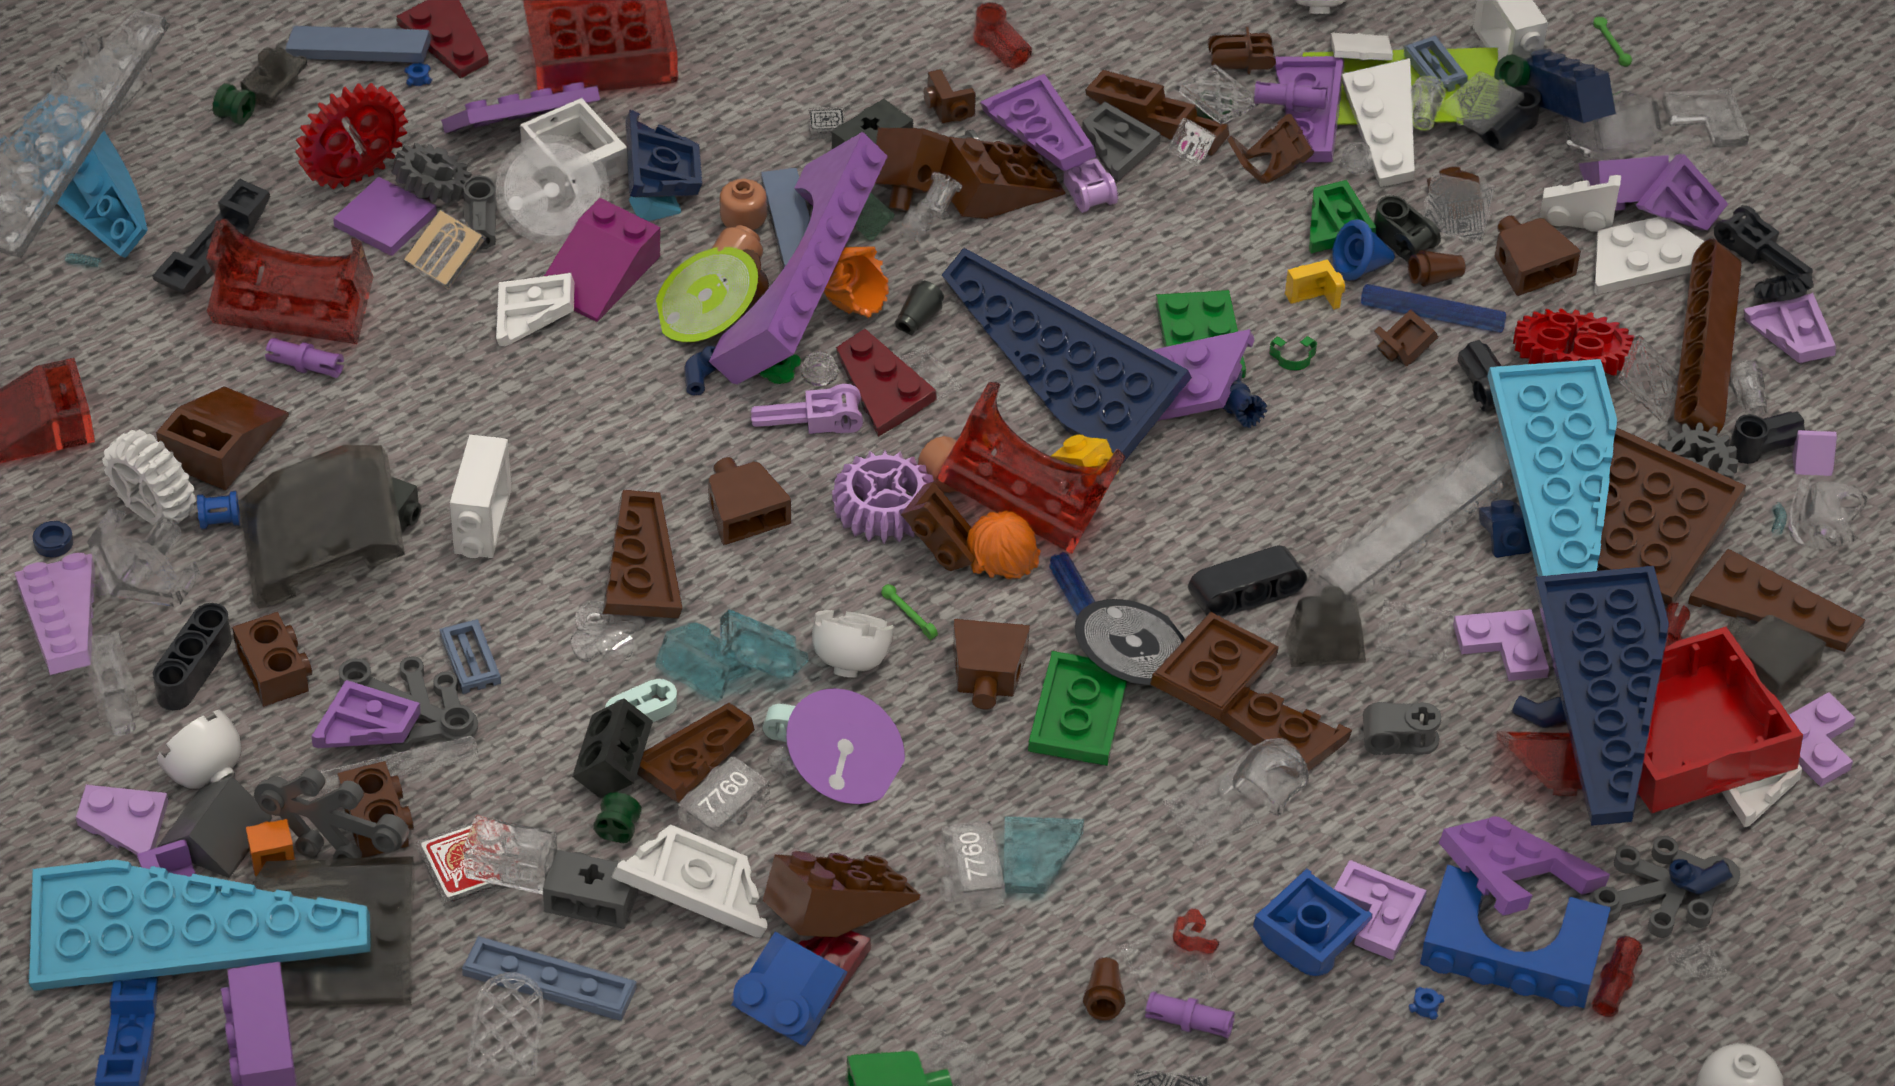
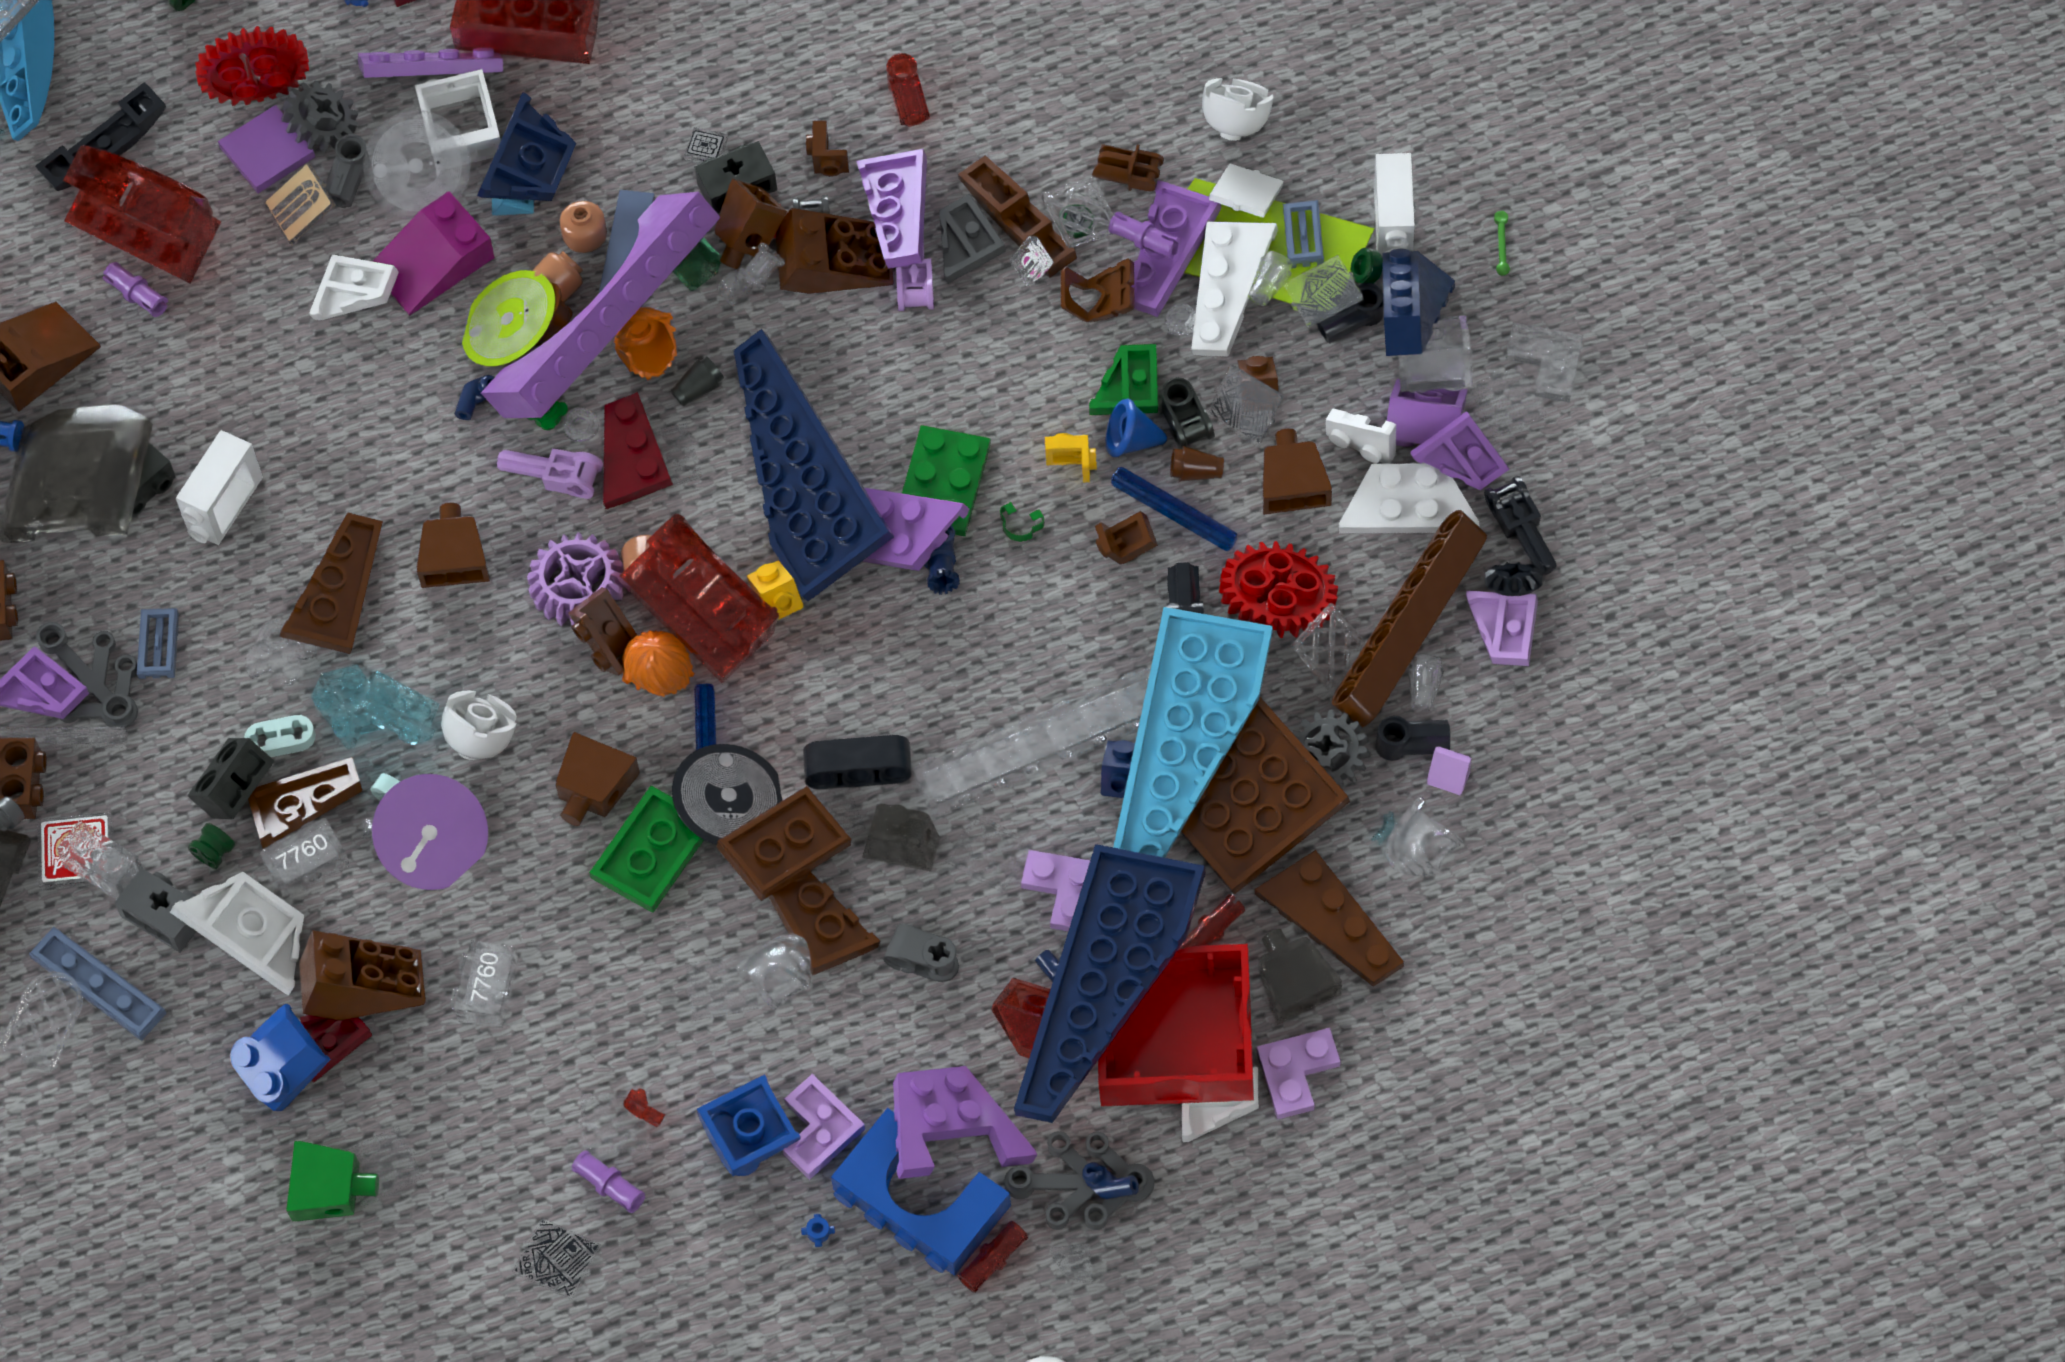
camera: 25 degrees right, 15 degrees up
(889, 592) = (543, 679): bright green hinge -> none
(1037, 851) = (550, 983): clear light blue wing -> none
(1104, 990) = (547, 1135): reddish brown cone -> none

